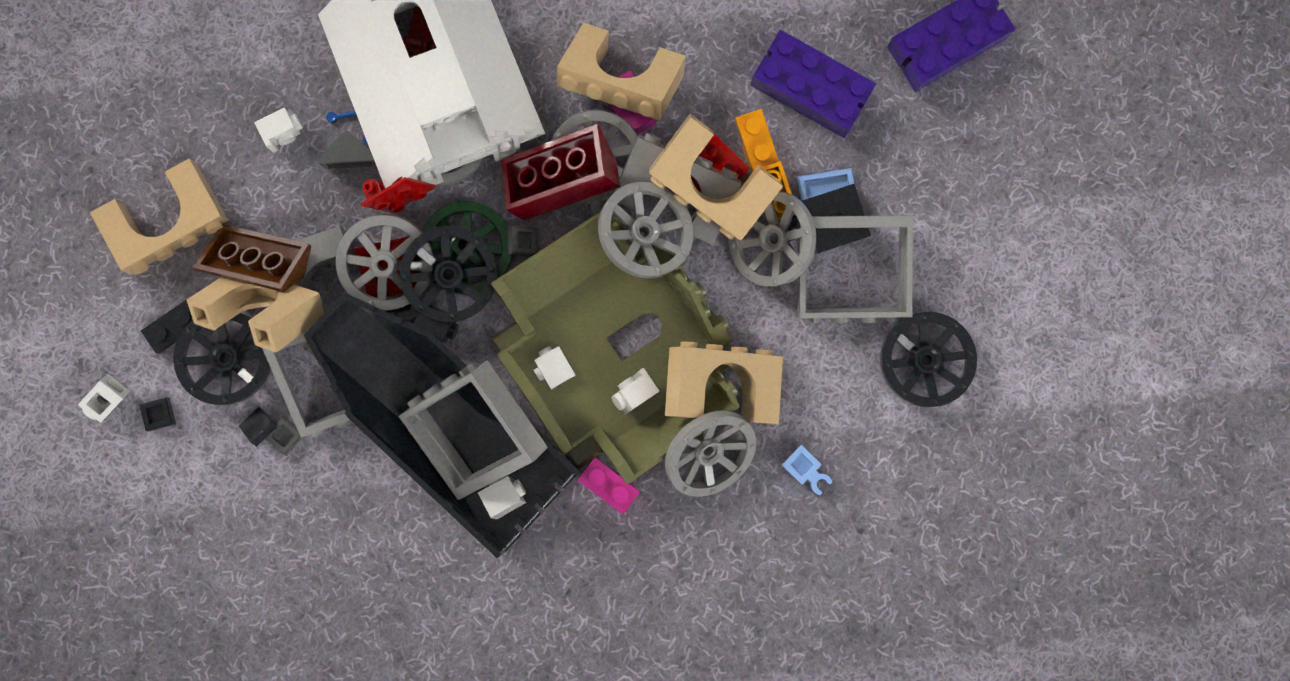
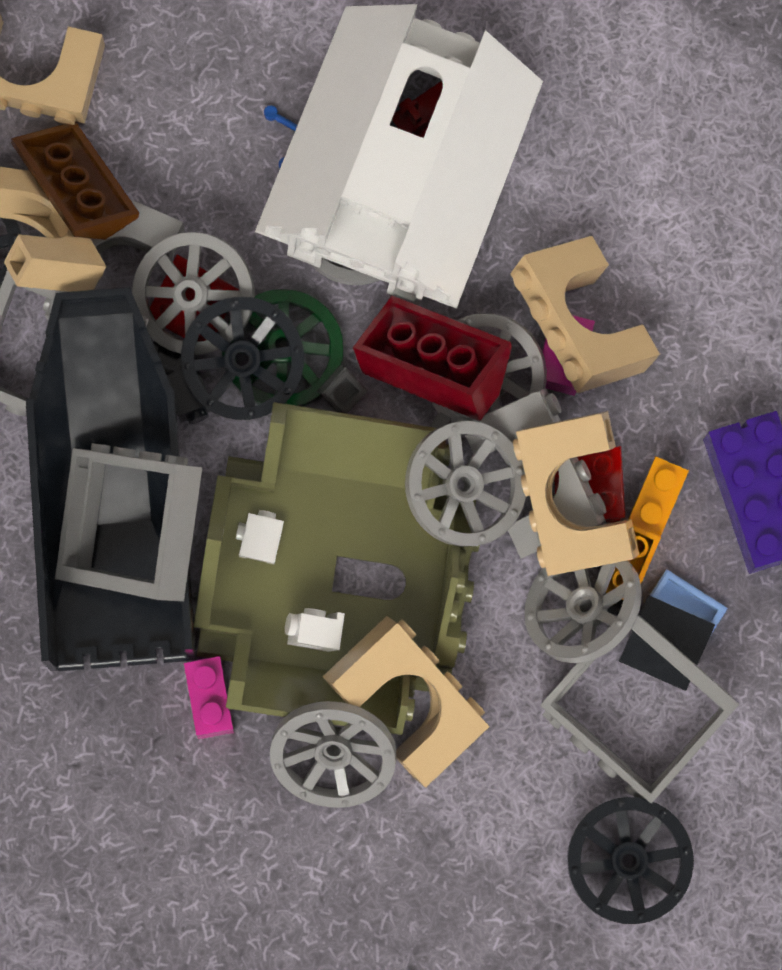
camera: 40 degrees right, 5 degrees down
(278, 128) = (210, 80): white brick -> none
(346, 153) = (253, 159): dark grey slope -> none
(395, 196) = (260, 241): red hinge -> none
(502, 496) = (99, 614): white brick -> none
(803, 468) = (412, 853): light blue plate -> none

